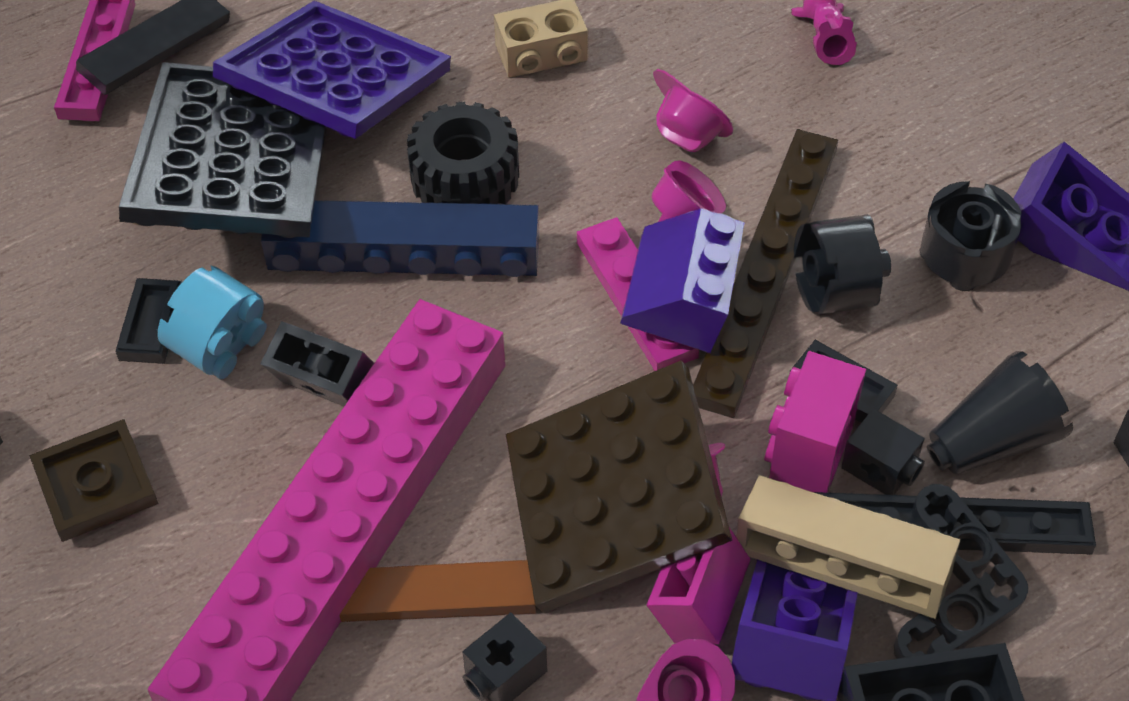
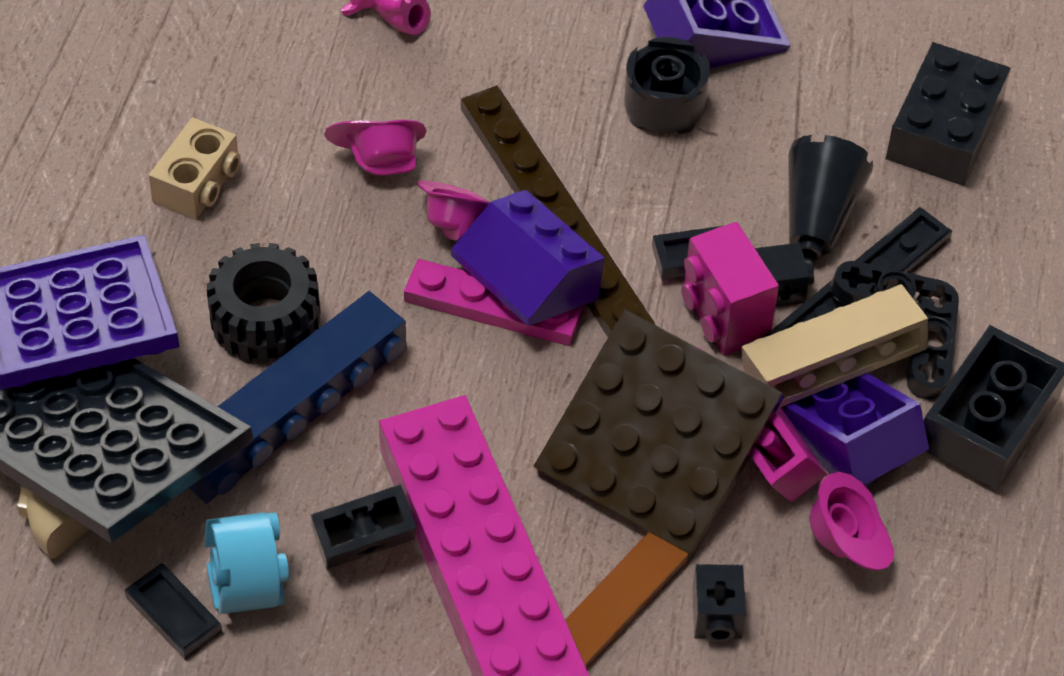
camera: 50 degrees left, 0 degrees up
(840, 264) = (615, 170): black brick -> none

